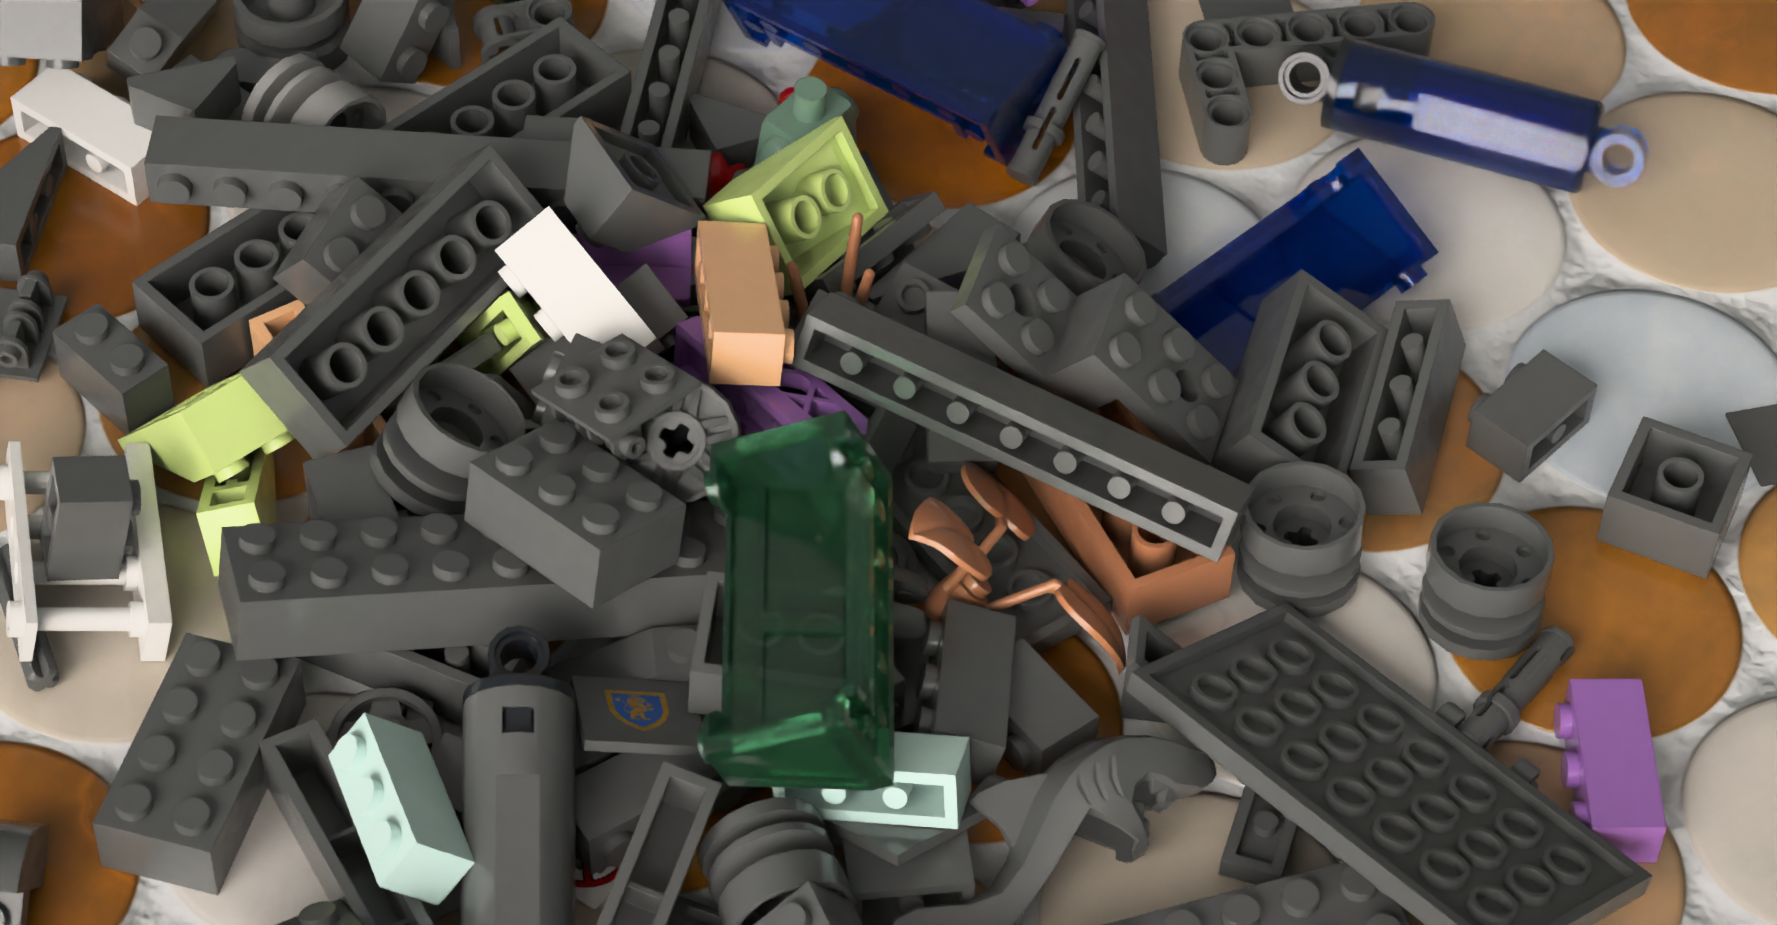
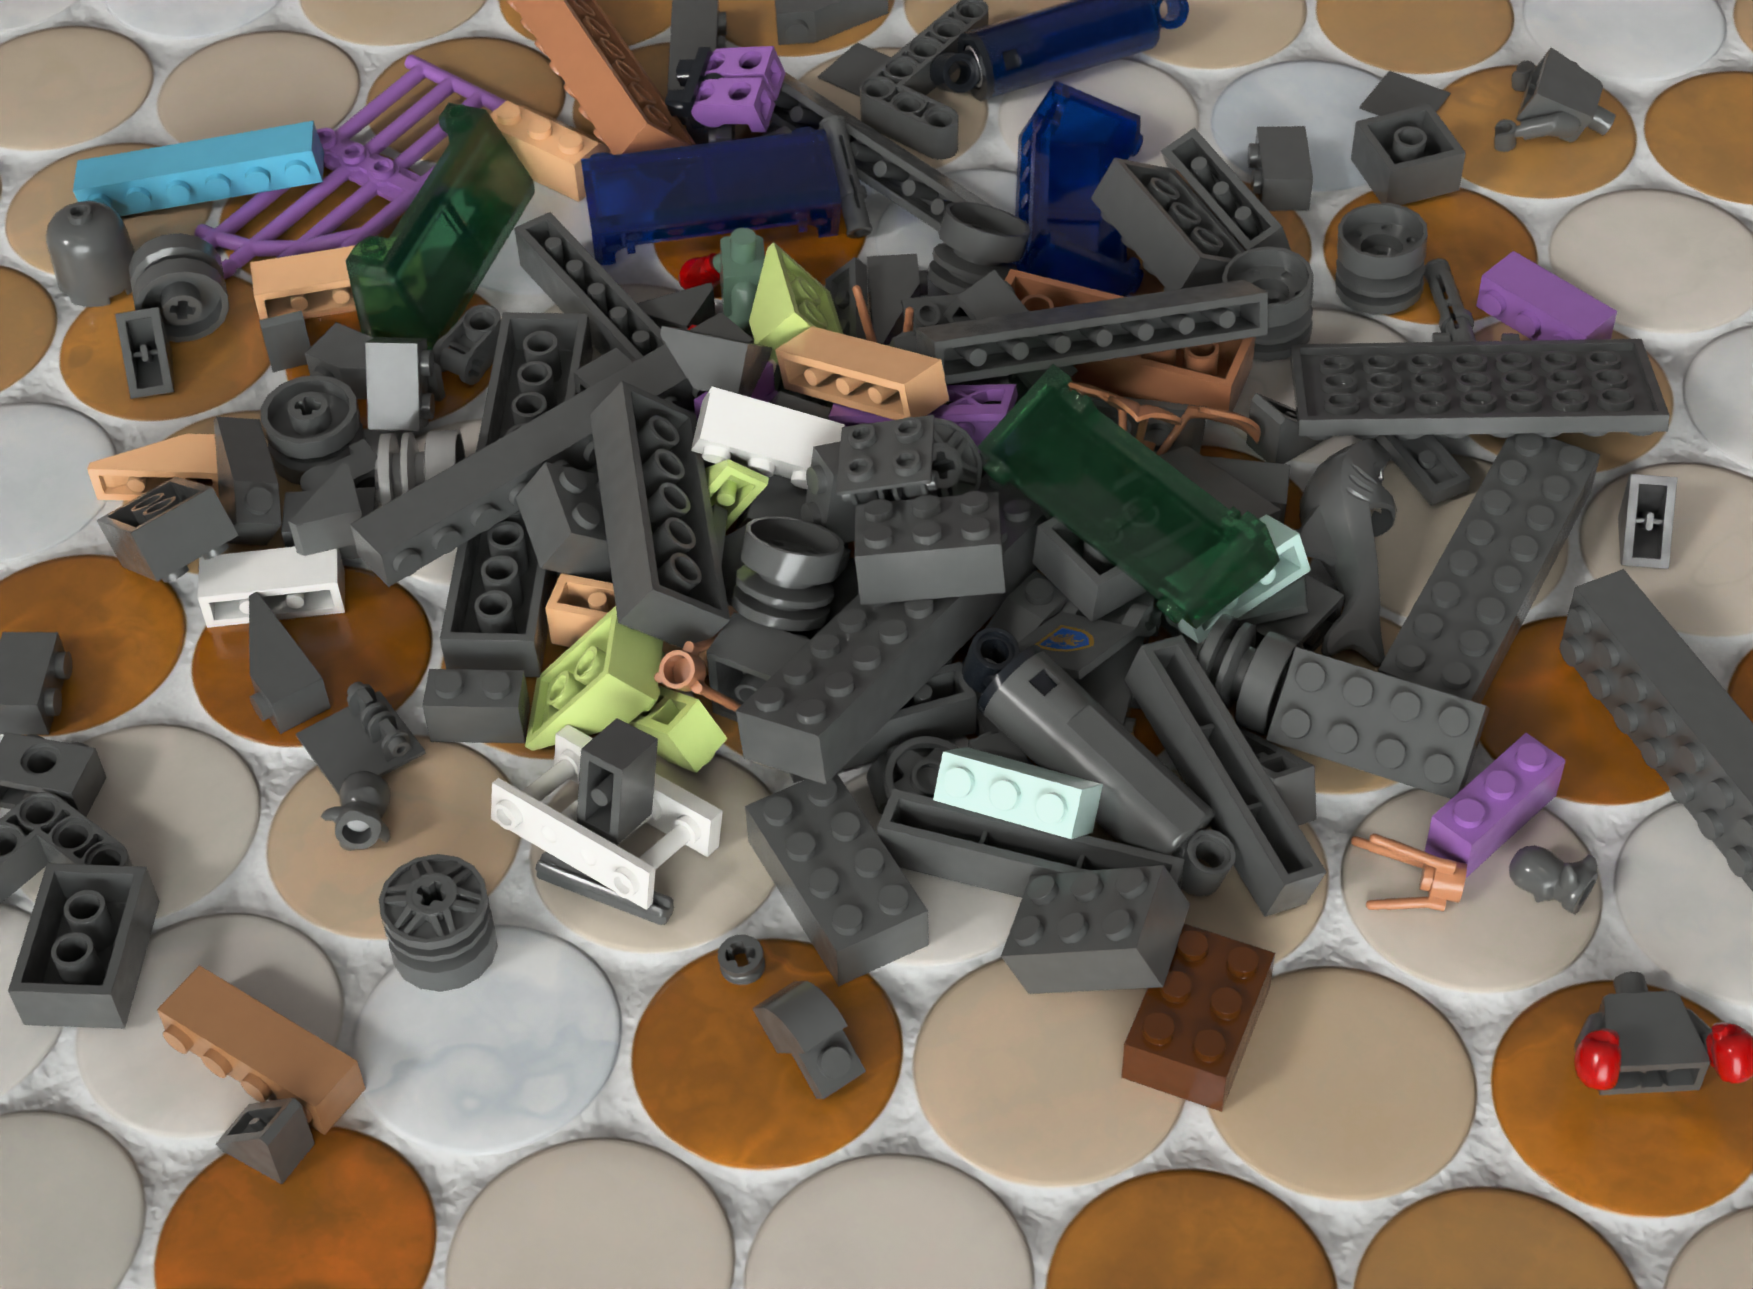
camera: 40 degrees left, 0 degrees up
(49, 789) = (754, 953): none -> dark grey bush
(263, 468) = (686, 672): none -> nougat plant
(1095, 344) = (1066, 263): dark grey bracket -> none

